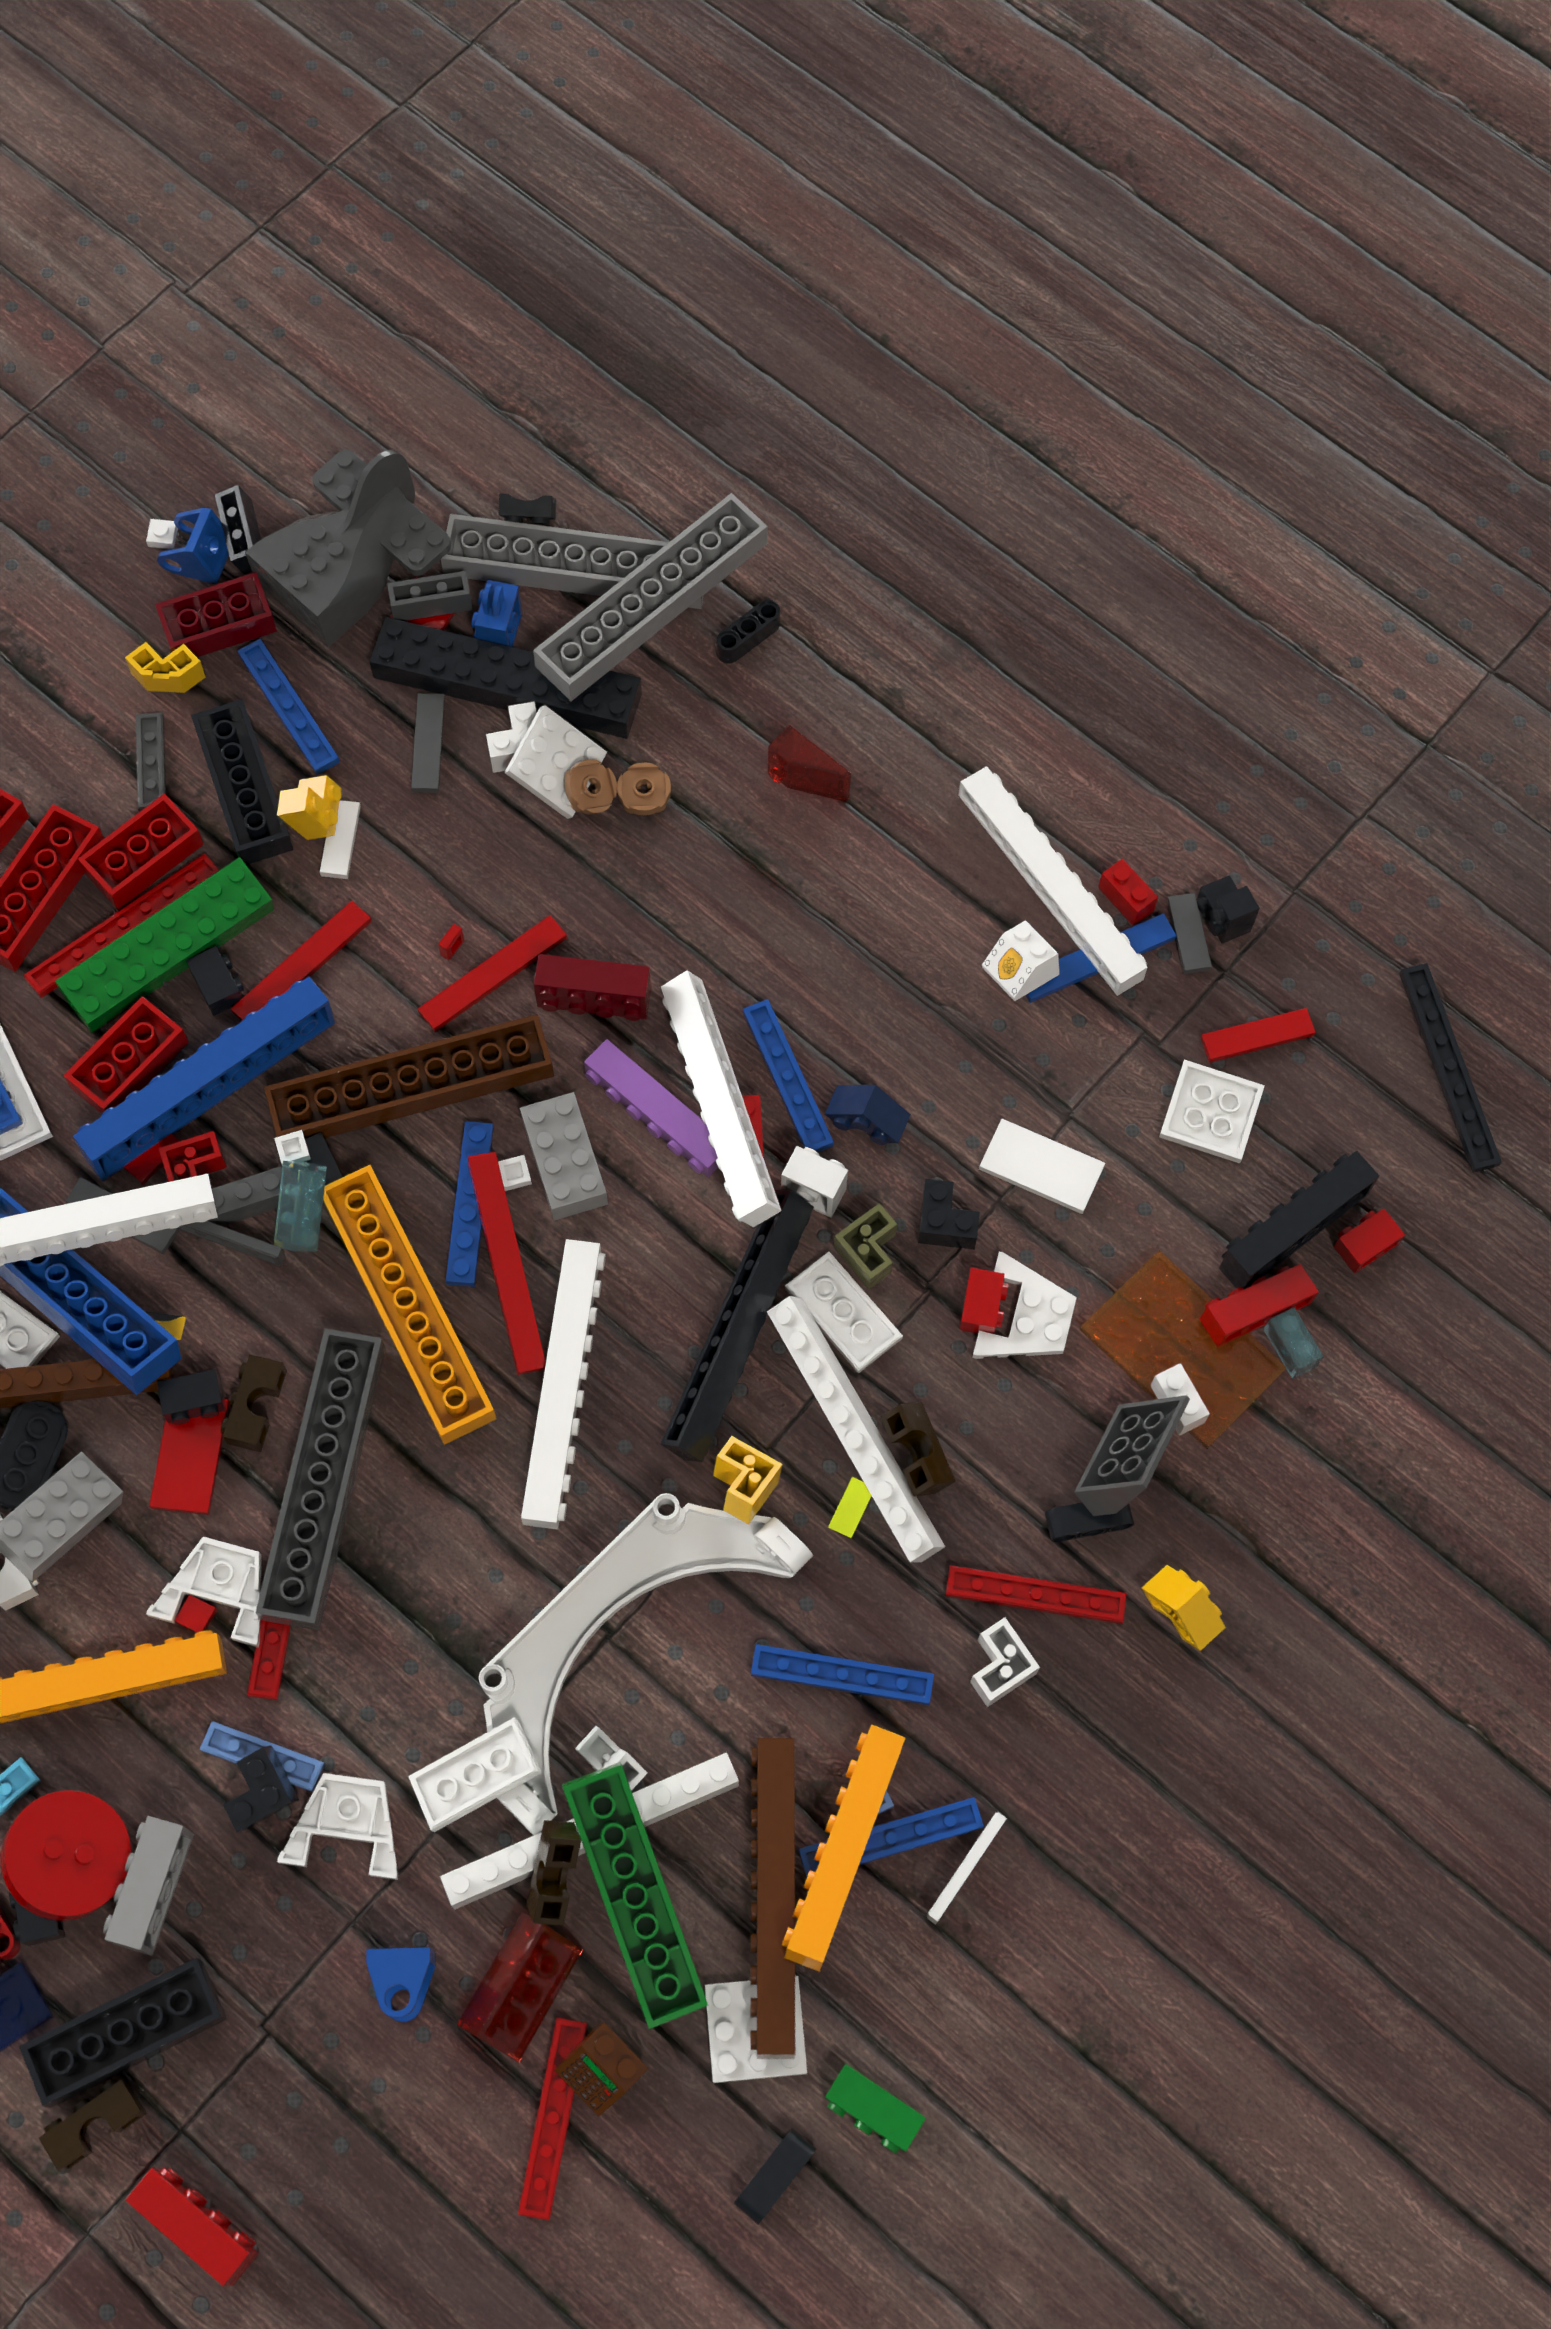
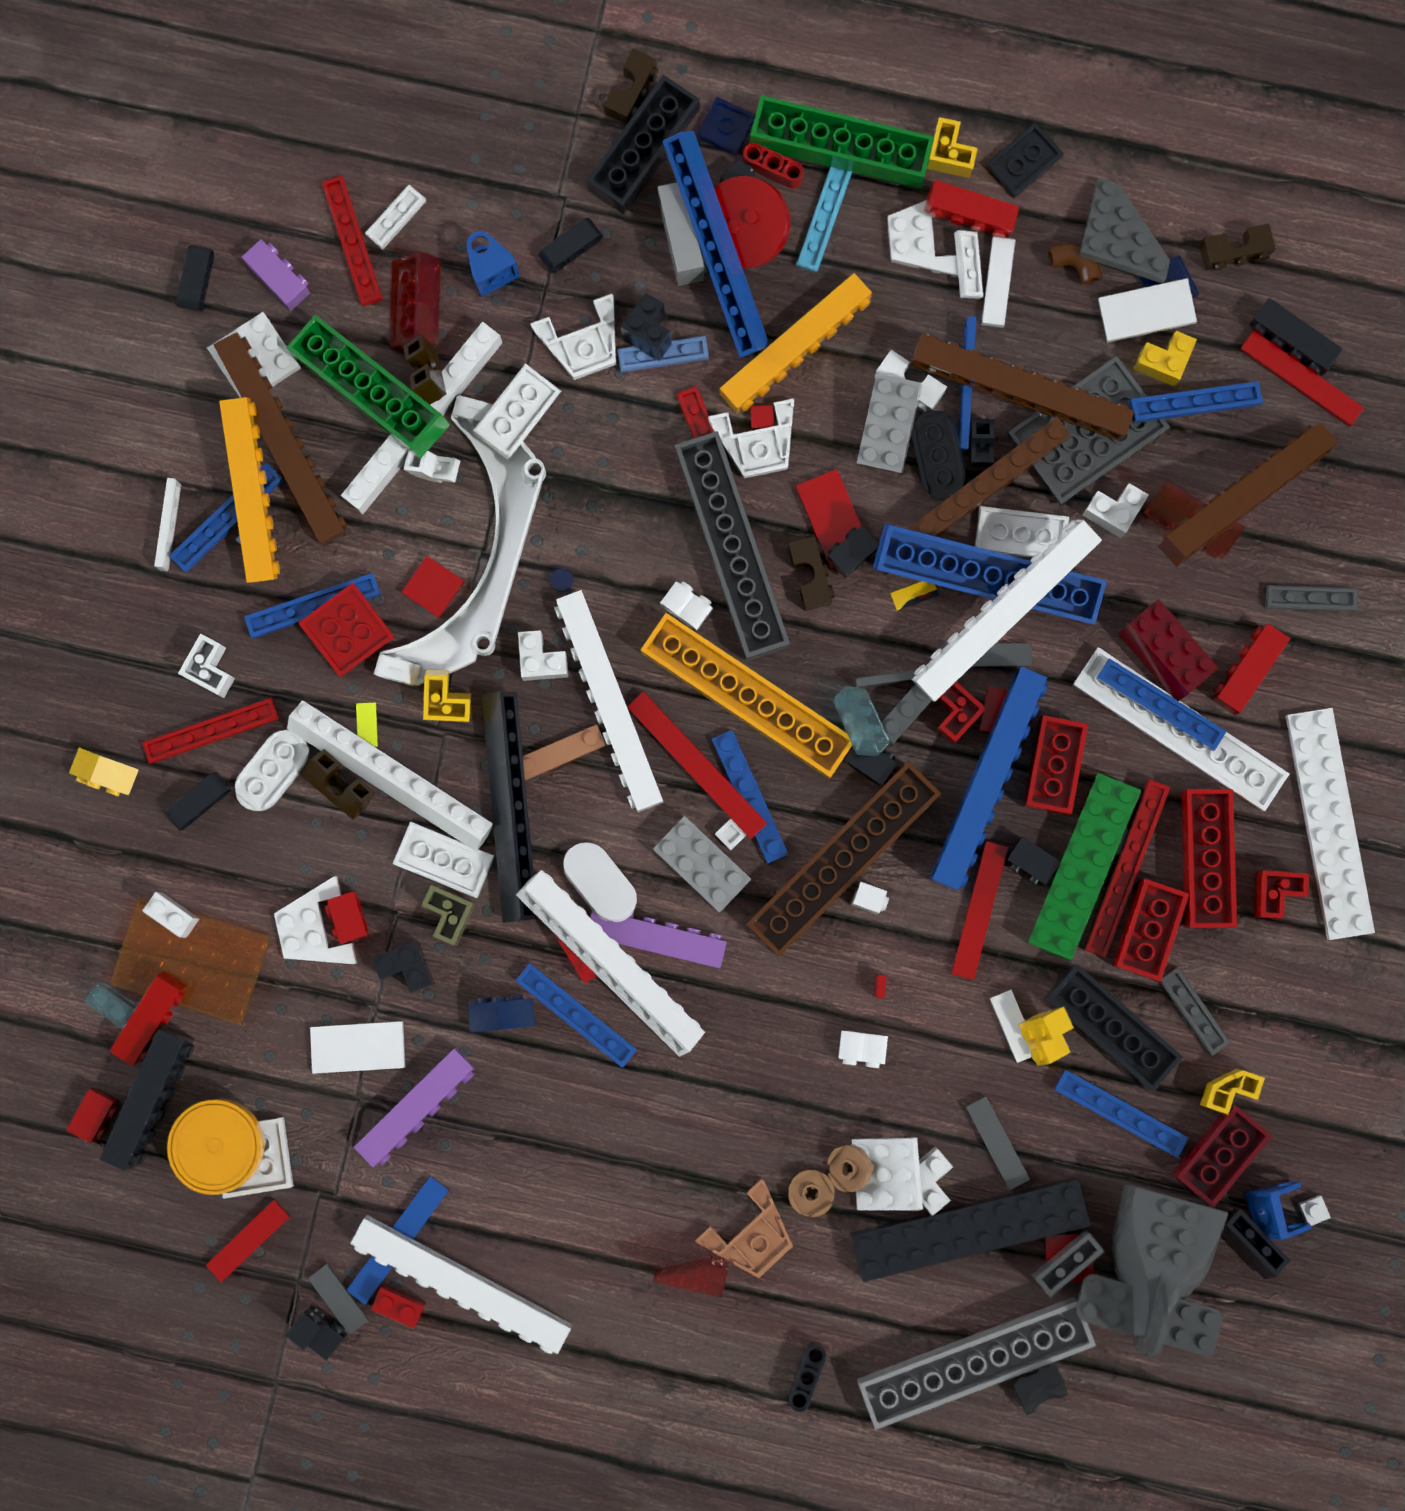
camera: 155 degrees right, 15 degrees up
(114, 1842) = (716, 243): none -> blue brick
(192, 2226) = (531, 61): red brick -> none
(289, 1954) = (570, 245): none -> black beam
(292, 1147) = (892, 758): white plate -> none
(407, 1024) = (869, 898): none -> white brick
(414, 1442) = (686, 605): none -> white brick
(482, 2120) = (395, 217): none -> white tile
(492, 973) = (836, 980): red tile -> none
(498, 613) = (1004, 1275): blue brick -> none
(506, 893) = (862, 1047): none -> white brick
(537, 1550) = (561, 580): none -> clear blue tile
(592, 987) = (753, 1003): dark red brick -> none
(601, 2069) = (335, 281): reddish brown slope -> none
(619, 1469) = (536, 663): none -> white brick
(644, 1357) = (562, 752): none -> nougat plate
(650, 597) = (889, 1353): light grey brick -> none
(670, 2122) = (276, 274): none -> medium lavender brick
(684, 1193) = (600, 882): none -> white tile
(690, 1623) = (433, 587): none -> red tile
(723, 771) = (757, 1244): none -> nougat wing
(815, 1179) = (510, 939): white brick -> none
(816, 1620) = (346, 629): none -> red plate
(874, 2109) = (153, 348): green brick -> none
(987, 1511) = (271, 770): none -> white tile
(1010, 1072) = (414, 1107): none -> medium lavender brick
(1021, 961) = (449, 1200): white slope -> none
(1129, 1453) = (182, 851): dark grey slope -> none
(1245, 1134) = (215, 1146): none -> light orange brick
(1450, 1068) = (93, 1291): black plate -> none

